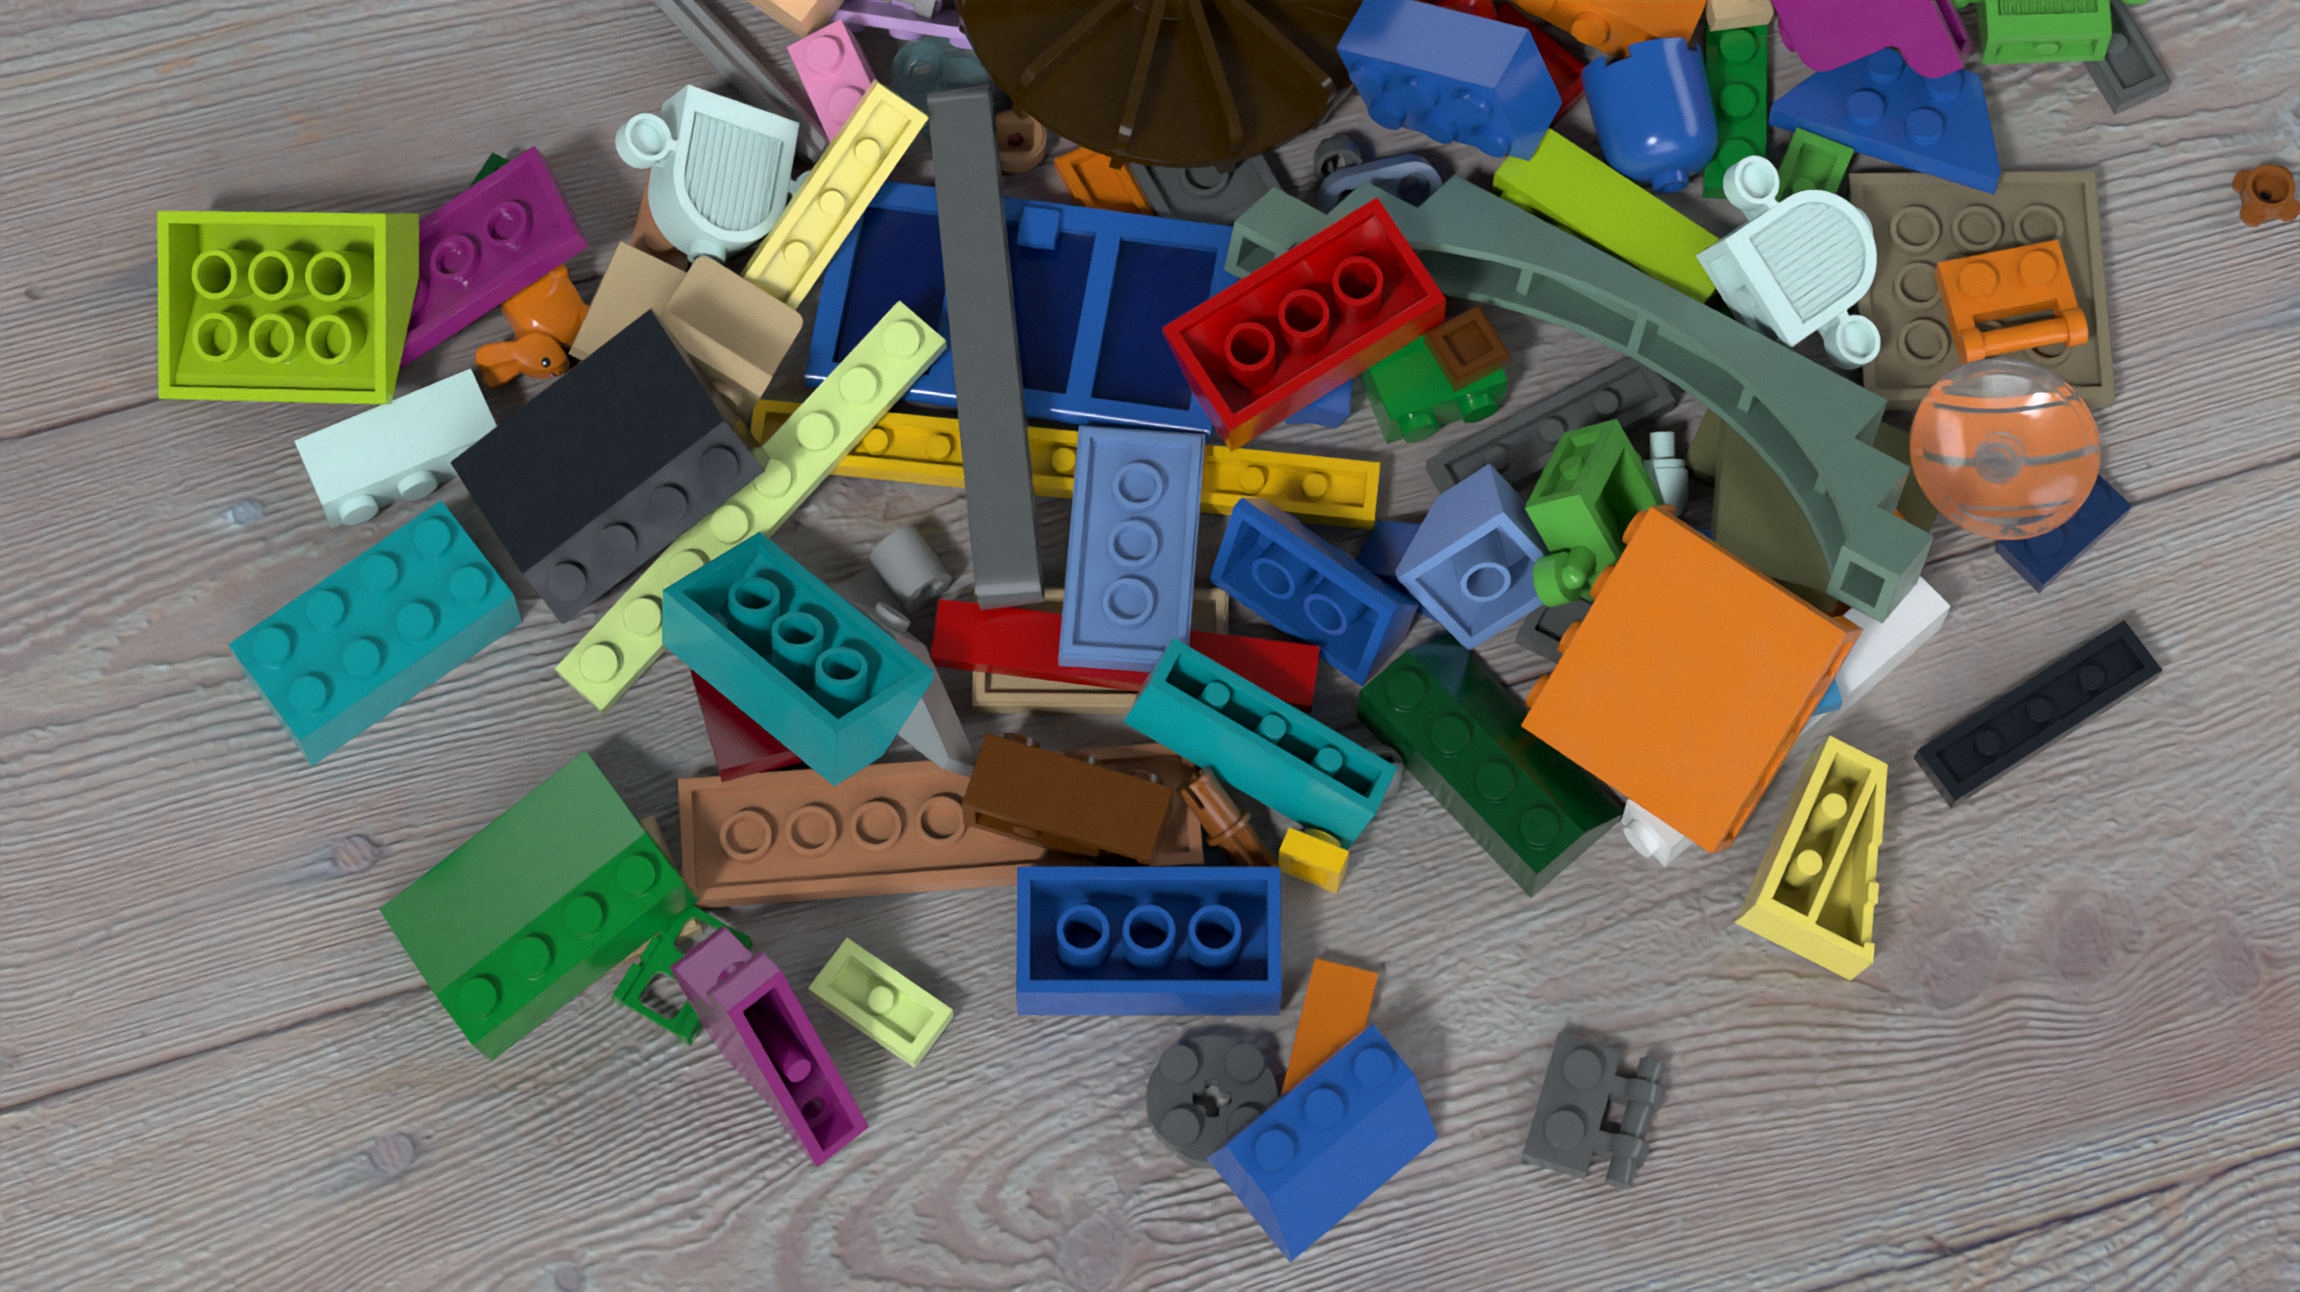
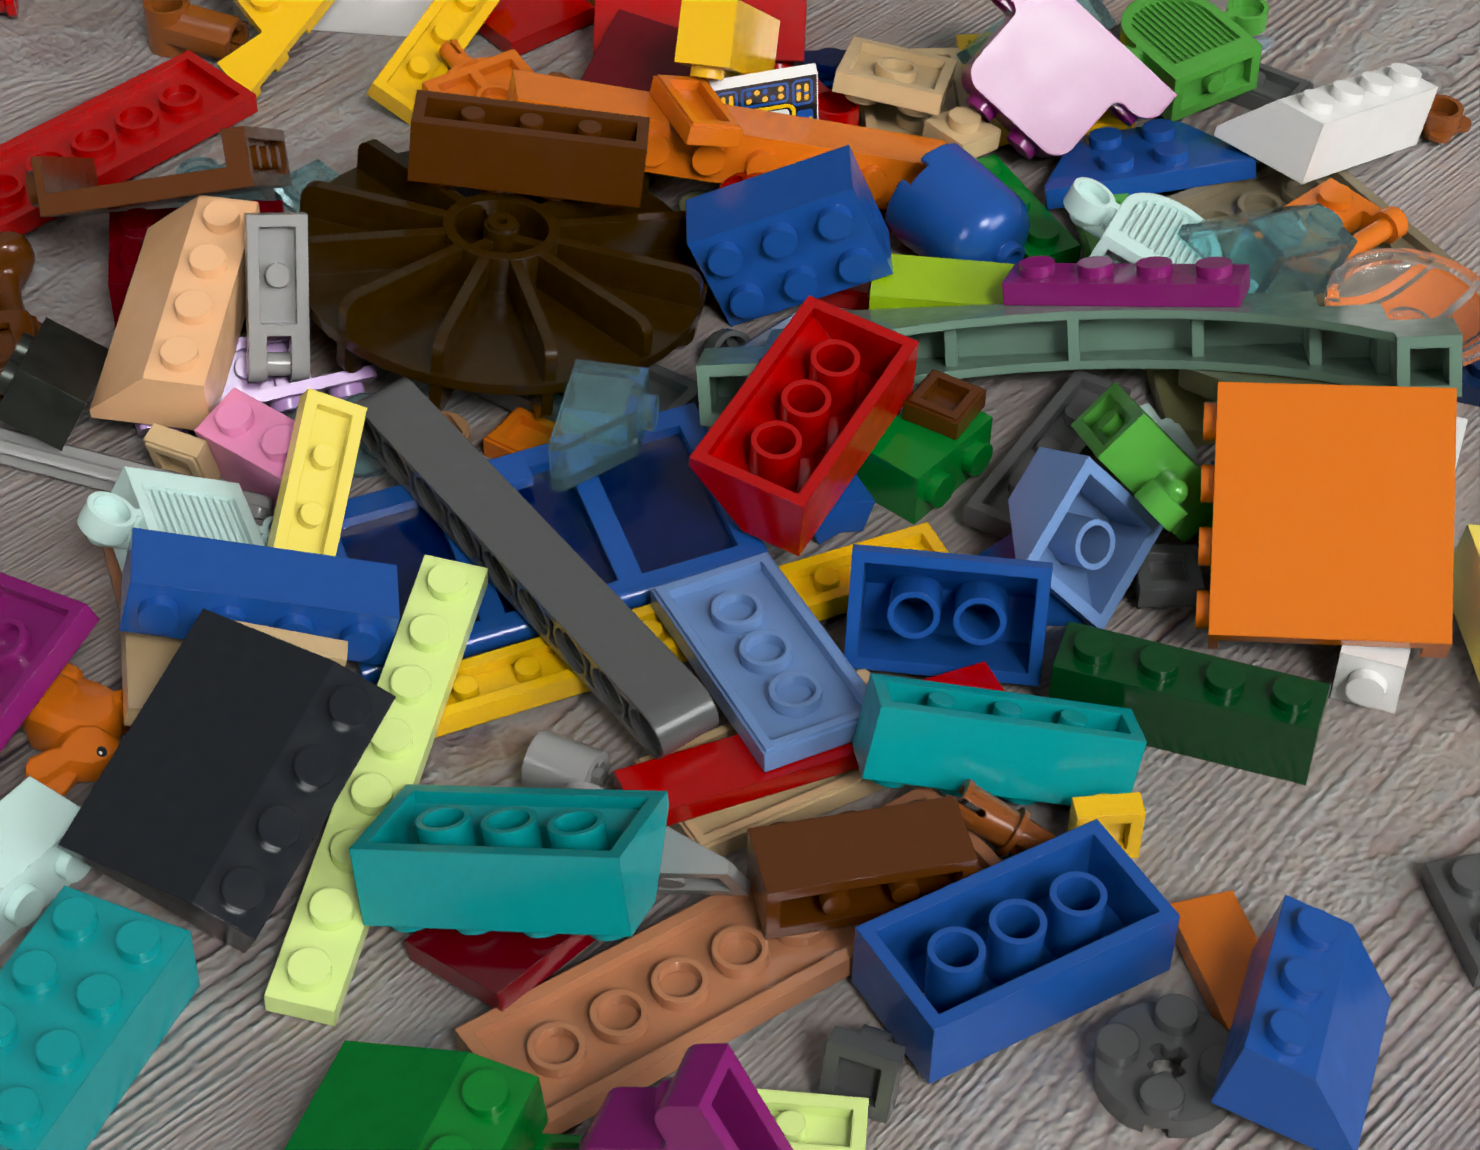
camera: 30 degrees left, 25 degrees down
(731, 286) = (335, 597): none -> blue brick
(773, 55) = (181, 452): none -> tan tile
(966, 980) = (863, 1066): none -> dark grey tile
(1134, 222) = (600, 421): none -> clear light blue slope
(1718, 303) = (1139, 284): none -> magenta plate
(1901, 314) = (1283, 245): none -> clear light blue slope
(2118, 164) = (1336, 123): none -> white slope

